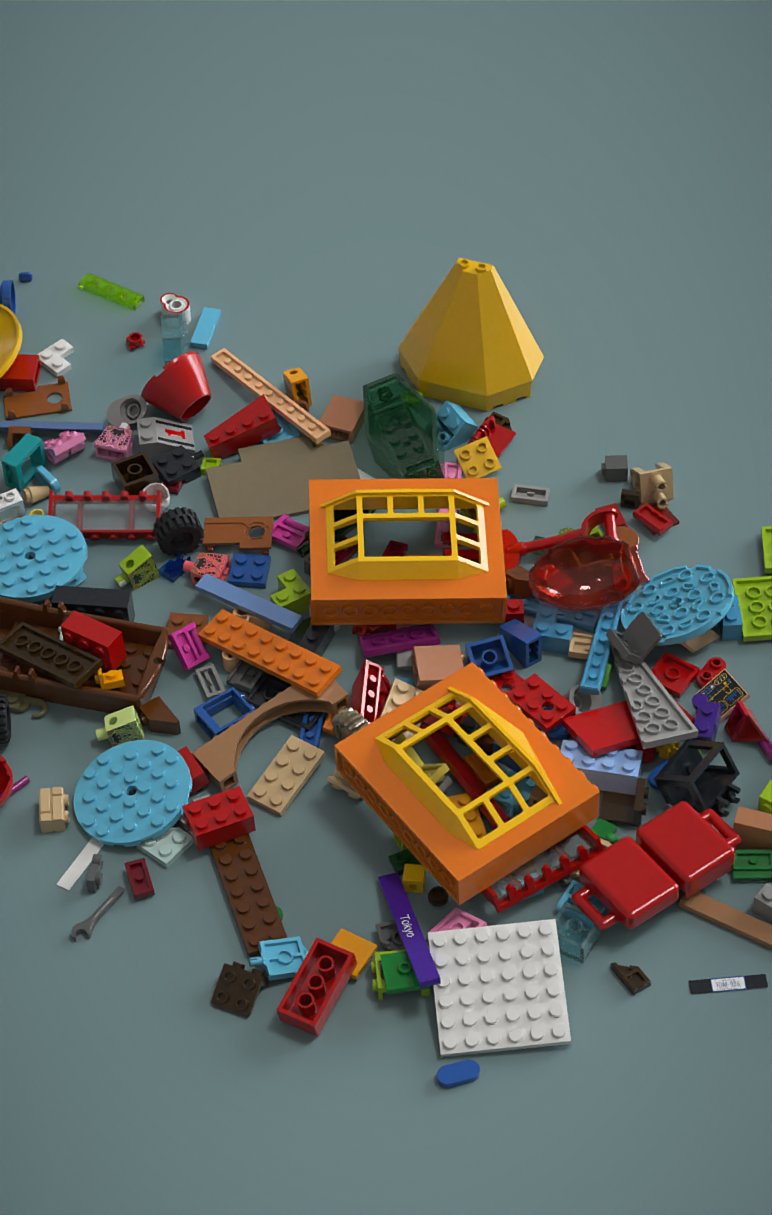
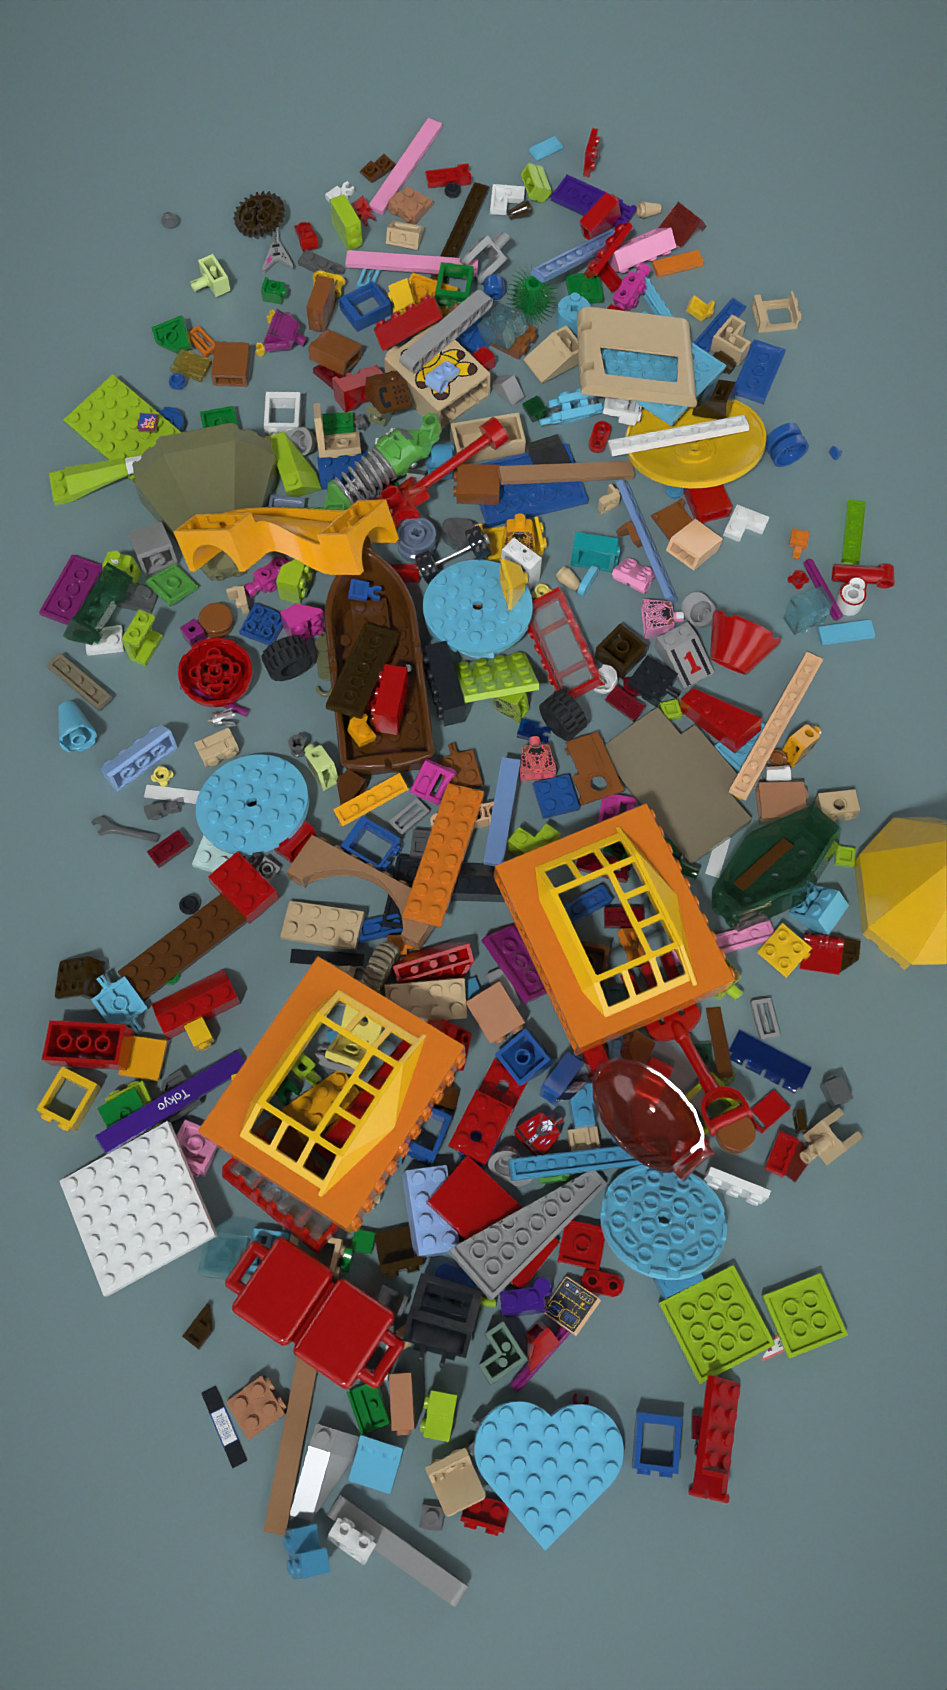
camera: 65 degrees right, 20 degrees up
(21, 802) = (218, 718): none -> flat silver piece
(25, 874) = (139, 757): none -> light blue slope
(29, 517) = (512, 582): none -> yellow slope
(55, 861) = (161, 770): none -> light yellow plate
(61, 391) = (694, 544): none -> light nougat brick
(91, 743) = (297, 740): none -> dark grey bush
(98, 328) = (798, 541): none -> orange plate
(115, 561) = (495, 677): none -> lime plate
(145, 328) = (818, 581): none -> magenta axle
(152, 304) = (881, 575): none -> red piece
(181, 699) = (370, 799): none -> light orange panel
(188, 492) = (625, 703): none -> dark red plate
(208, 878) = (188, 905): none -> black plate
(313, 896) = (202, 999): none -> red slope
(316, 408) = (778, 774): none -> white tile
(317, 788) = (337, 958): none -> black sticker
(348, 900) = (199, 1034): none -> yellow brick
(348, 1011) = (77, 1118): none -> yellow window
(363, 376) = (846, 800): none -> tan brick
(392, 444) = (763, 864): none -> reddish brown sticker
(458, 1073) = (46, 1204): blue tile -> none
(537, 530) = (719, 1042): none -> reddish brown sticker
(538, 624) = (575, 1087): none -> sticker
(562, 672) = (539, 1133): none -> red torso
(569, 505) = (764, 1057): none -> clear blue windscreen
(636, 640) = (593, 1192): dark grey bracket -> none
(668, 551) = (736, 1186): none -> white plate
(720, 949) = (256, 1407): none -> nougat plate
(747, 750) = (507, 1355): none -> sand green brick

